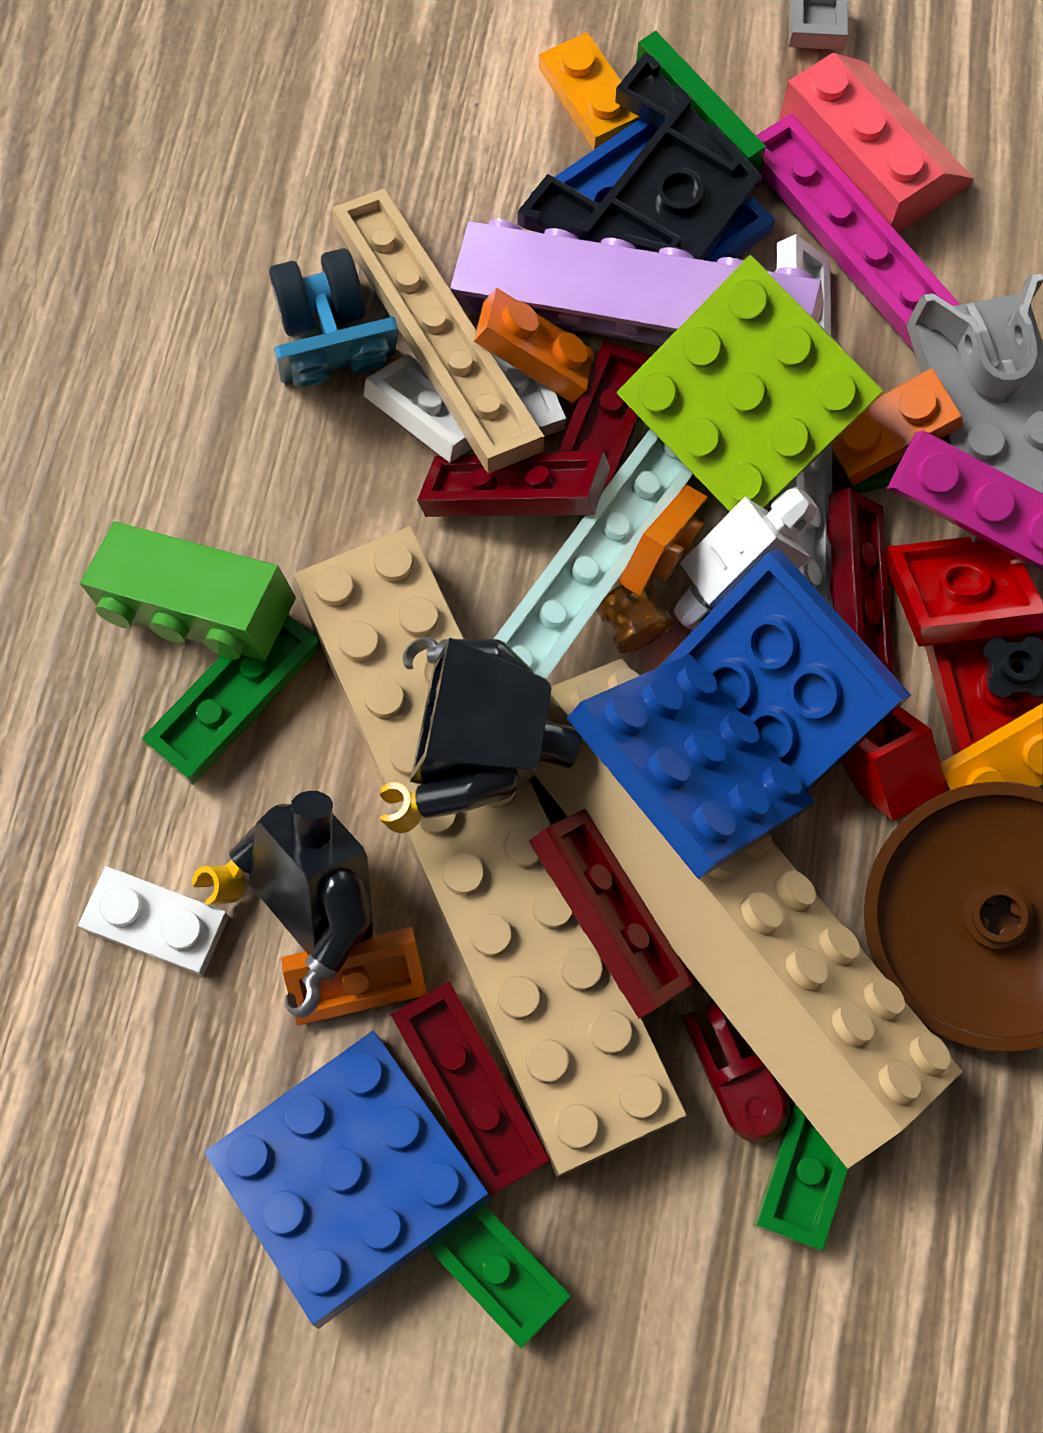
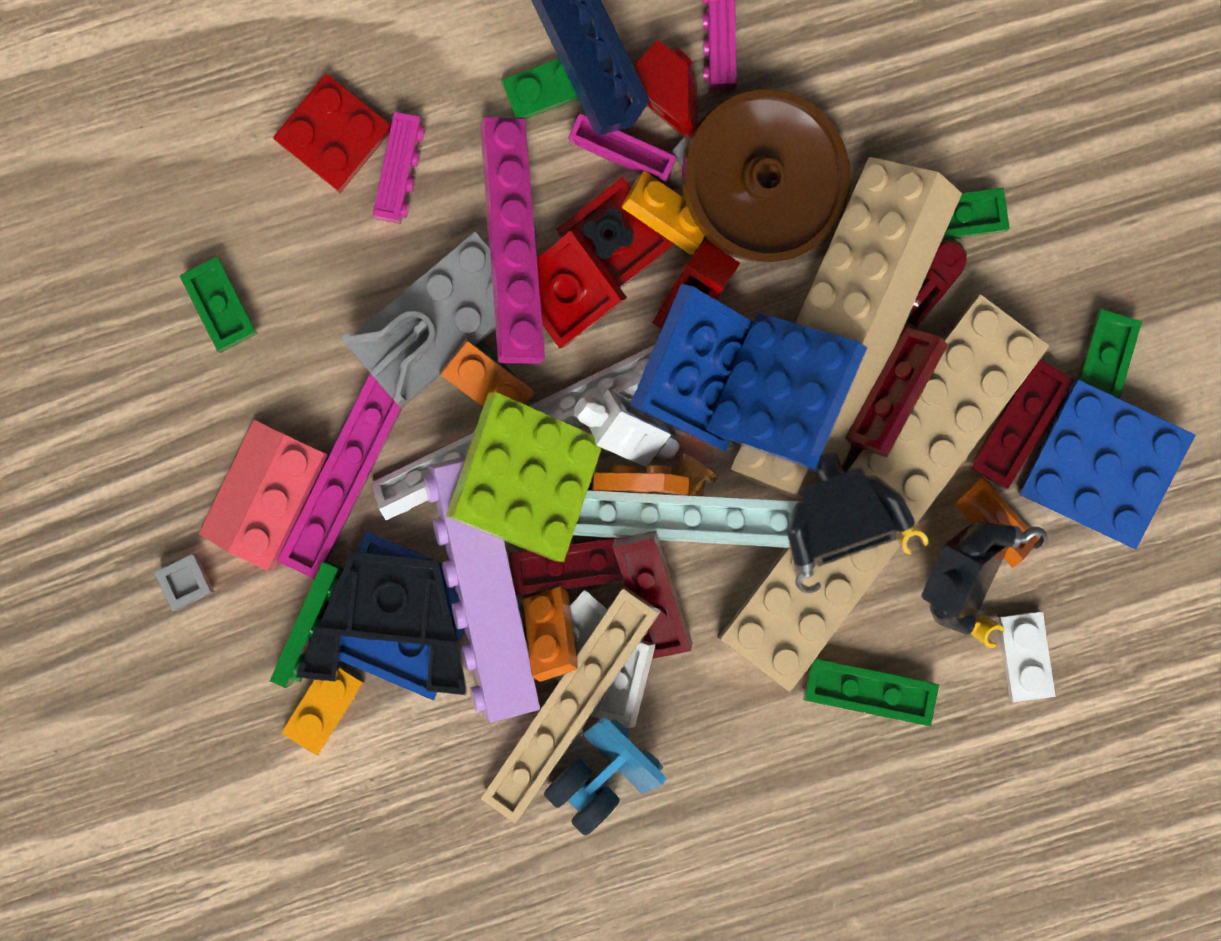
camera: 115 degrees left, 15 degrees up
(188, 591) = (832, 752): bright green brick -> none
(860, 569) = (597, 352): dark red plate -> none

